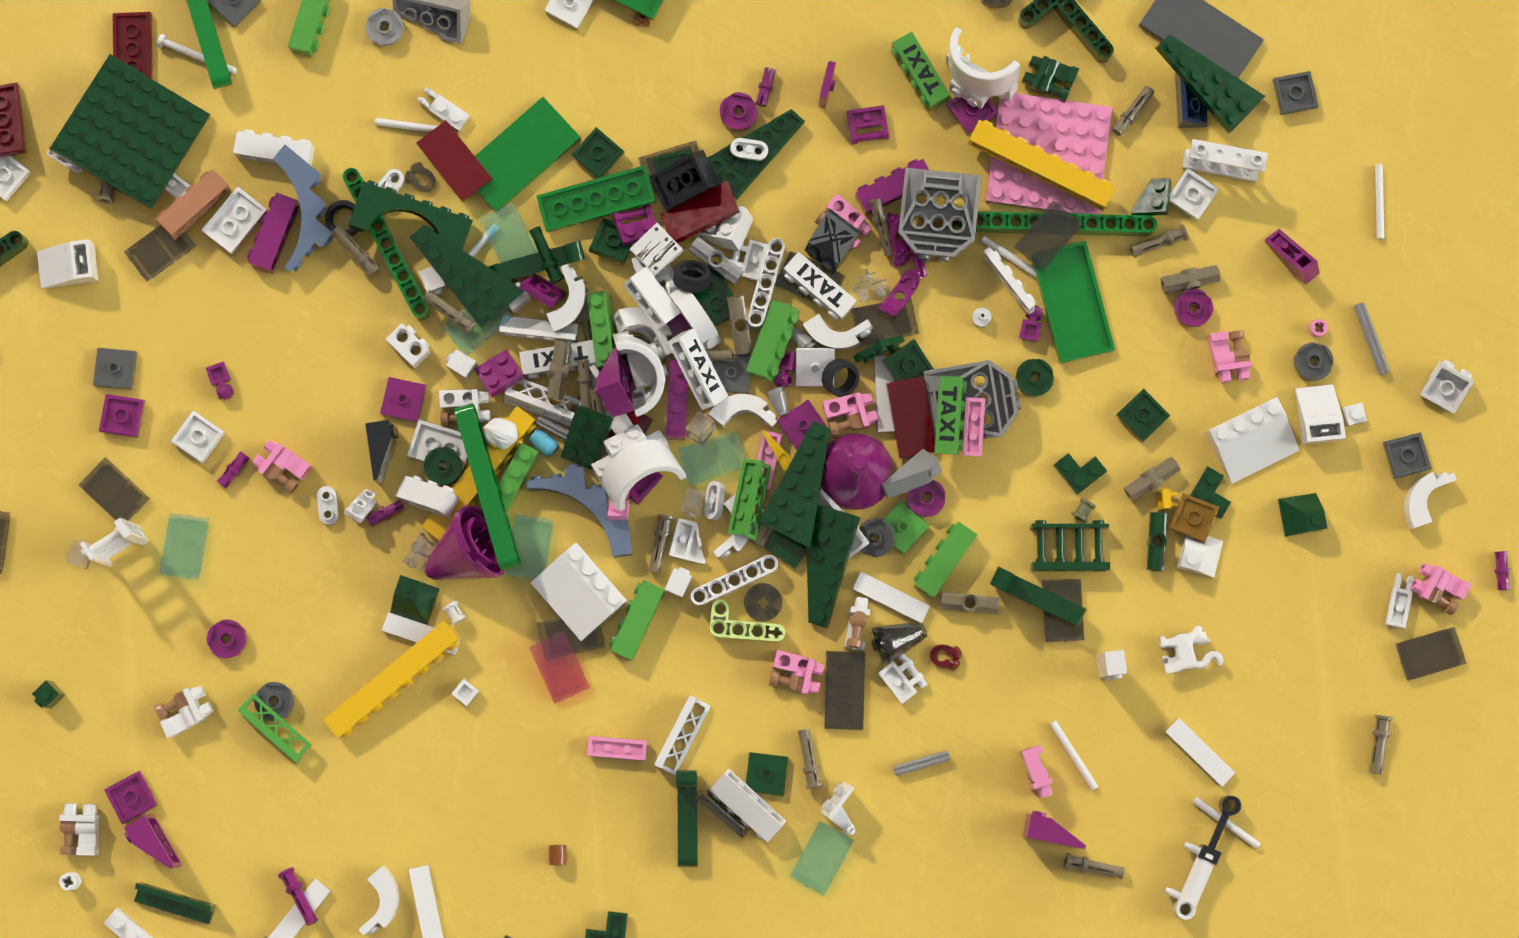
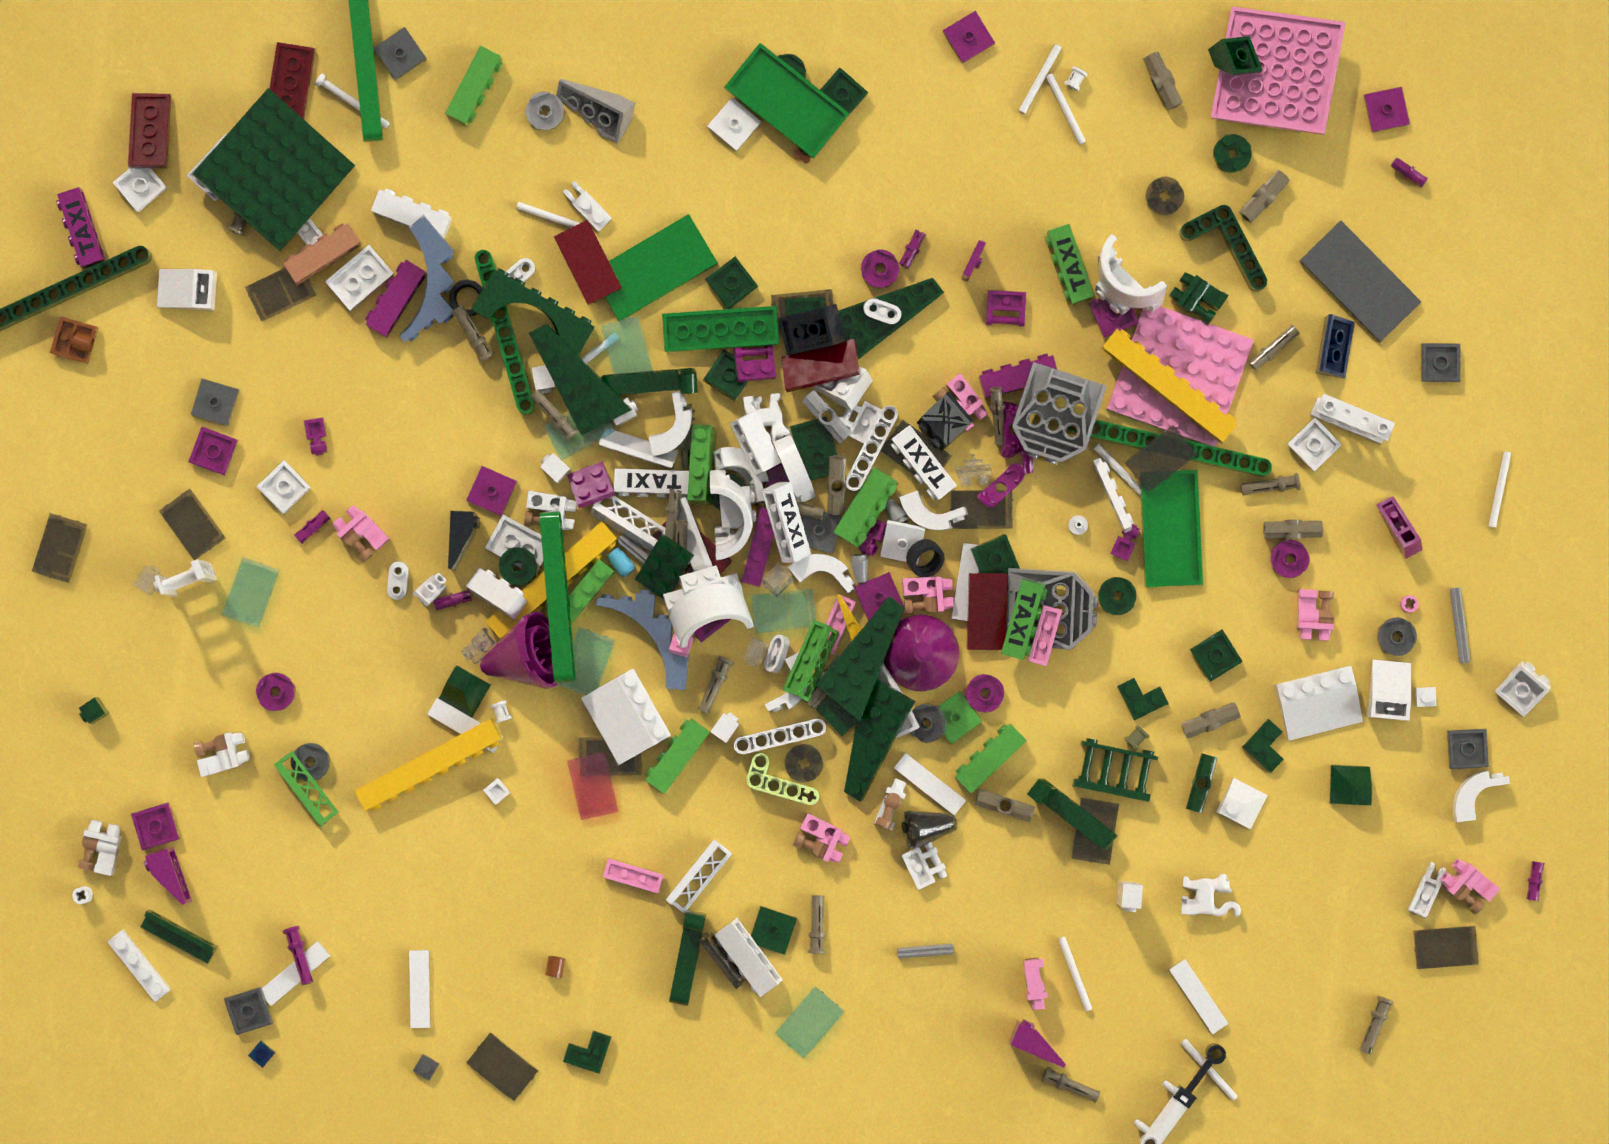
camera: 15 degrees right, 5 degrees up
(389, 897) = (385, 974): white arch -> none
(405, 348) = (503, 441): white brick -> none
(411, 179) = (541, 270): clear smoke piece -> none
(500, 433) = (580, 546): white hair -> none
(542, 290) = (649, 411): magenta plate -> none
(549, 263) = (662, 388): dark green pin -> none
(559, 370) = (650, 495): dark tan piece -> none
(615, 385) = (702, 524): magenta slope -> none
(656, 249) = (770, 394): white tile -> none
(686, 542) = (741, 689): white wing -> none
(690, 284) = (795, 437): black tyre -> none
(833, 808) = (830, 978): white plate -> none
(844, 690) = (865, 865): clear smoke plate -> none
(879, 348) = (969, 537): dark green plate -> none
(913, 474) = (977, 668): light grey slope -> none
(951, 664) = (981, 851): dark red piece -> none
(1154, 198) = (1274, 441): wing -> none
(1164, 499) = (1218, 742): yellow tile -> none
(1194, 518) = (1243, 767): pearl gold plate -> none
(1216, 88) = (1361, 344): dark green wing -> none

